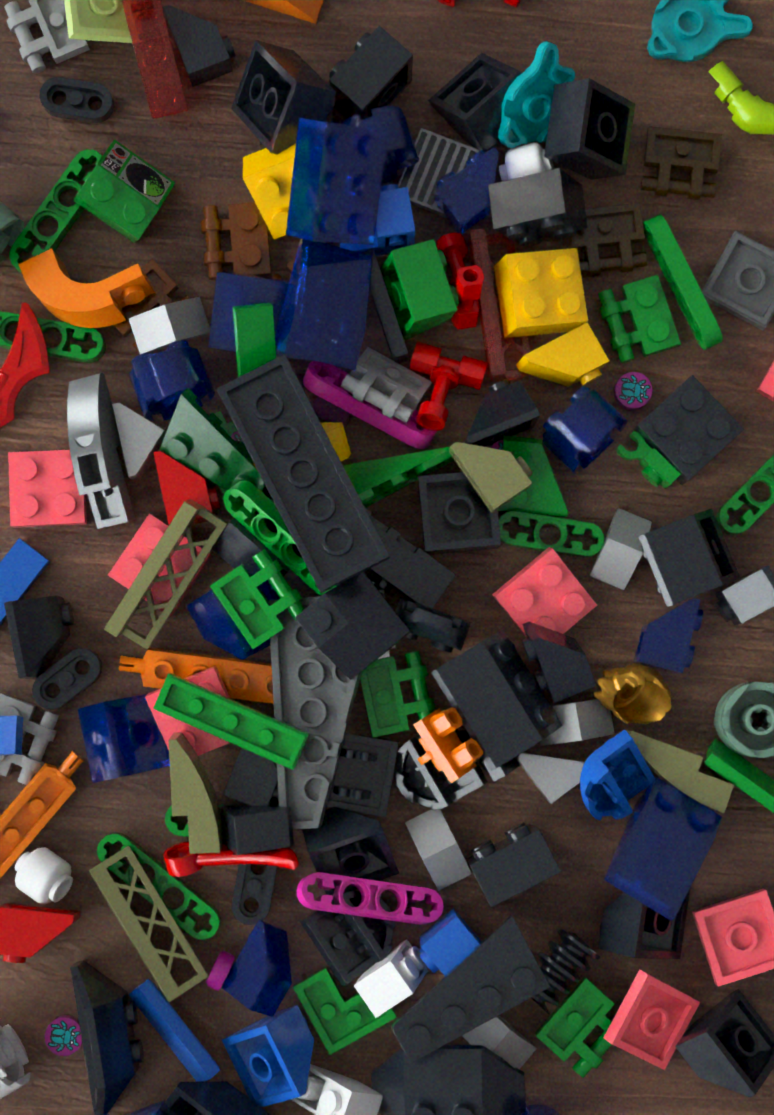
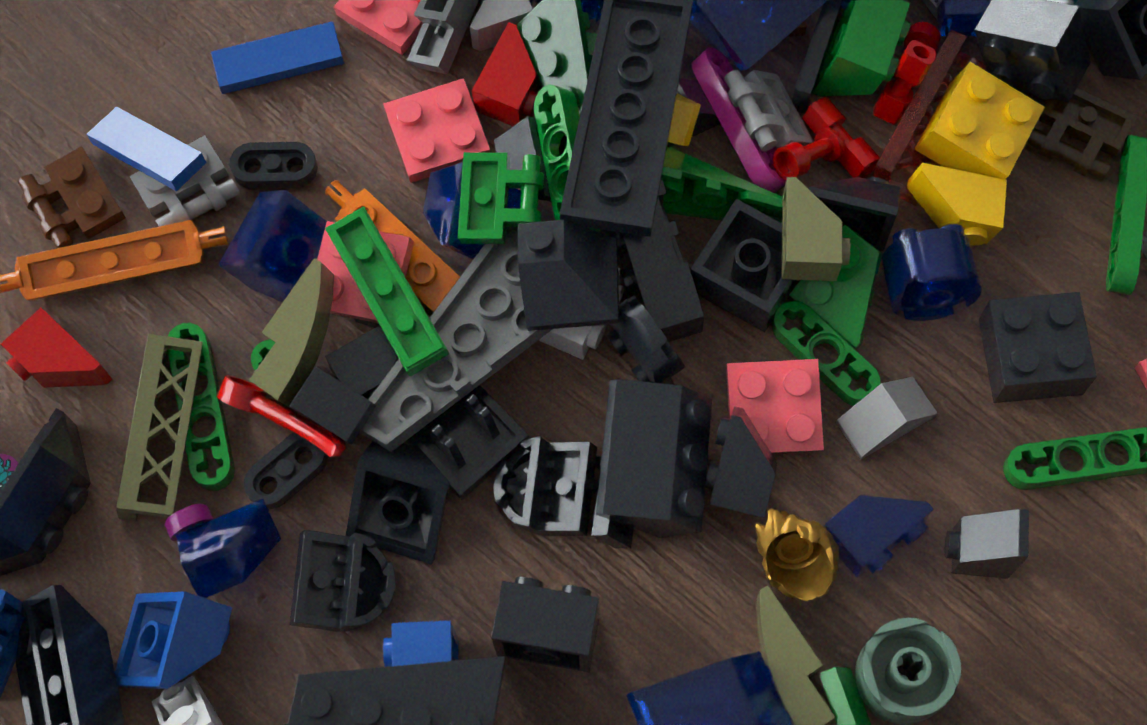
camera: 40 degrees right, 15 degrees down
(37, 632) = (279, 99): black slope -> none
(43, 875) = (105, 316): white head -> none
(153, 568) = (427, 113): olive fence -> none
(174, 1031) = (99, 545): blue tile -> none
(333, 1017) = (257, 650): green plate -> none
(370, 898) = (390, 551): dark pink beam -> none
(384, 694) = (549, 384): green plate -> none
(392, 978) = (337, 644): white slope -> none
(438, 848) = (484, 565): light grey slope -> none
(444, 746) = (567, 458): orange hips -> none
(551, 774) = (658, 577): light grey slope -> none
(581, 722) = (721, 547): light grey slope -> none
(613, 777) = (714, 617): blue slope -> none
(633, 391) = (1007, 279): tile -> none
(649, 316) = (1074, 224): green plate -> none
(656, 467) = (979, 359): green plate -> none
(688, 557) = (950, 459): black slope -> none

